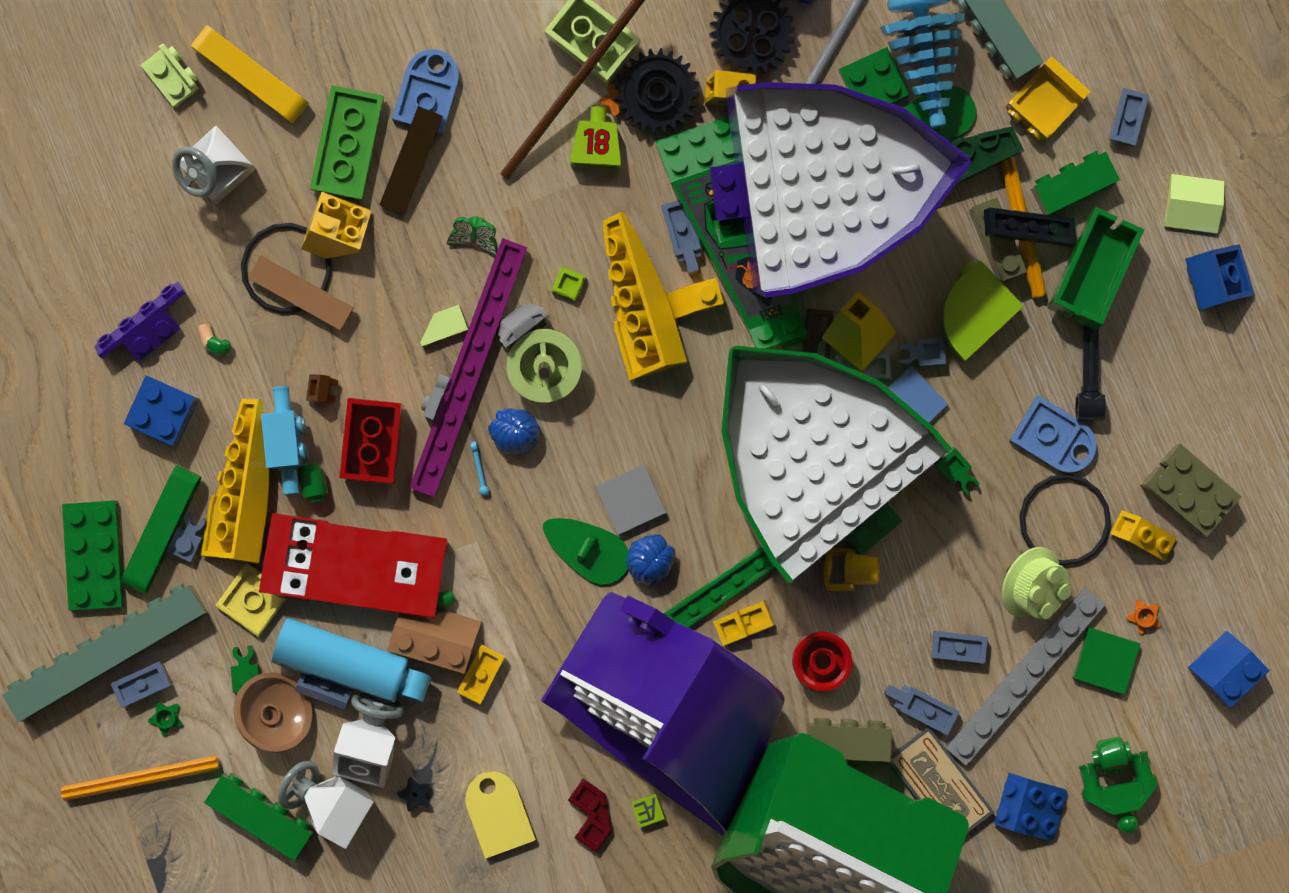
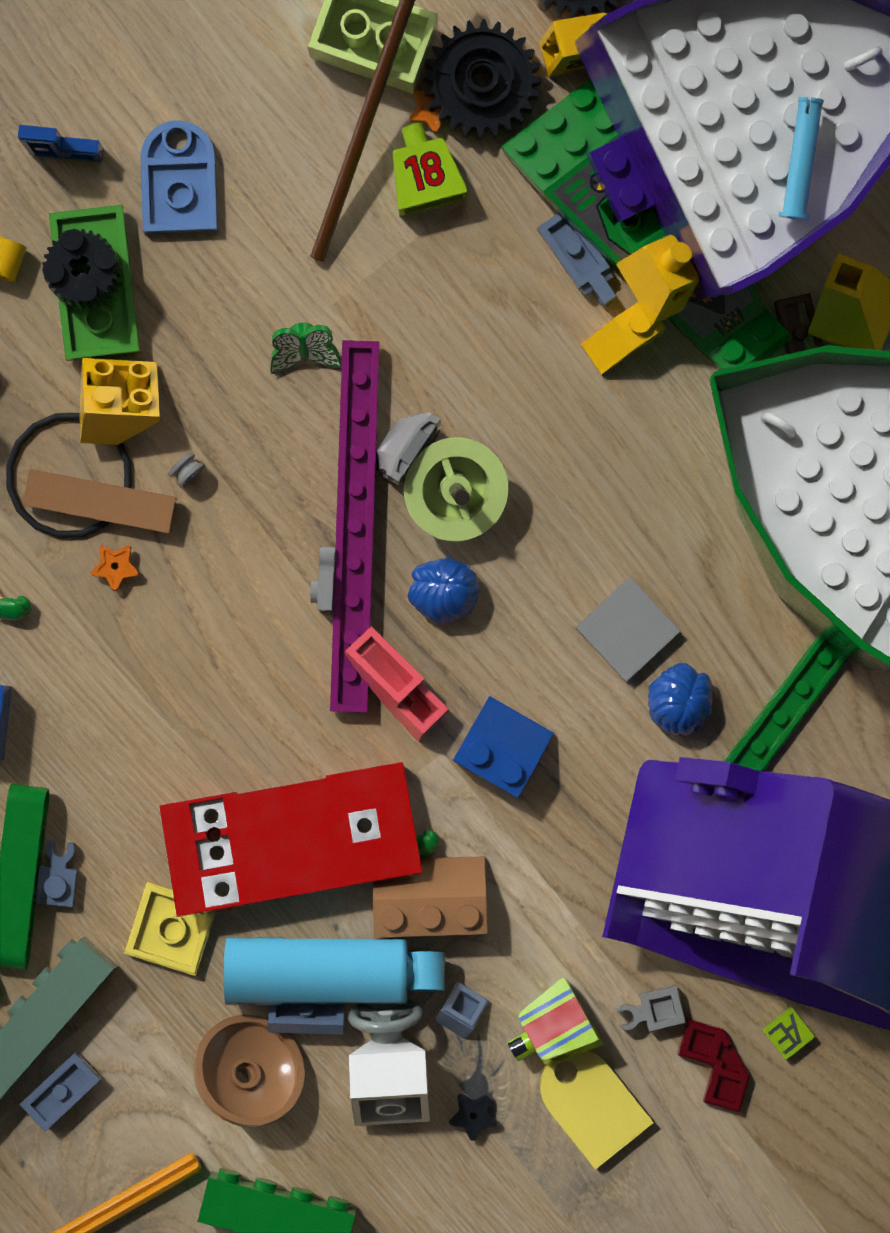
camera: 20 degrees left, 0 degrees up
(158, 717) = (108, 1134): green plate -> none
(240, 506) = (113, 808): yellow wedge -> none
(245, 670) = (192, 1026): green plate -> none
(284, 440) = (143, 704): medium azure brick -> none
(302, 335) = (124, 570): none -> orange plate
(312, 483) = (199, 747): green brick -> none
(318, 388) = (165, 619): reddish brown tile -> none
(333, 805) = (373, 1167): white piece -> none
(340, 117) = (67, 254): none -> black brick
(349, 39) = (50, 143): none -> blue tile
(366, 290) = (186, 469): none -> light grey bush
(371, 441) = (259, 665): red brick -> none
(411, 160) = (187, 277): dark brown tile -> none
(431, 720) = (461, 1010): none -> sand blue slope
(444, 325) = (304, 481): yellowish green tile -> none
(460, 484) = (396, 683): none -> coral slope
(481, 674) = (507, 926): yellow plate -> none
(484, 490) = (429, 681): medium azure hinge -> none
(490, 752) = (555, 1026): none -> torso
(518, 551) = (503, 746): none -> blue slope
(564, 765) = (659, 1009): none -> light grey plate
(568, 283) = (449, 372): lime tile -> none
(588, 549) = (593, 714): green shield -> none
(643, 313) = (562, 378): yellow wedge -> none
(729, 268) = (660, 277): none -> yellow torso
(744, 622) = (831, 742): yellow slope -> none
(841, 223) = (802, 158): none -> medium azure pin

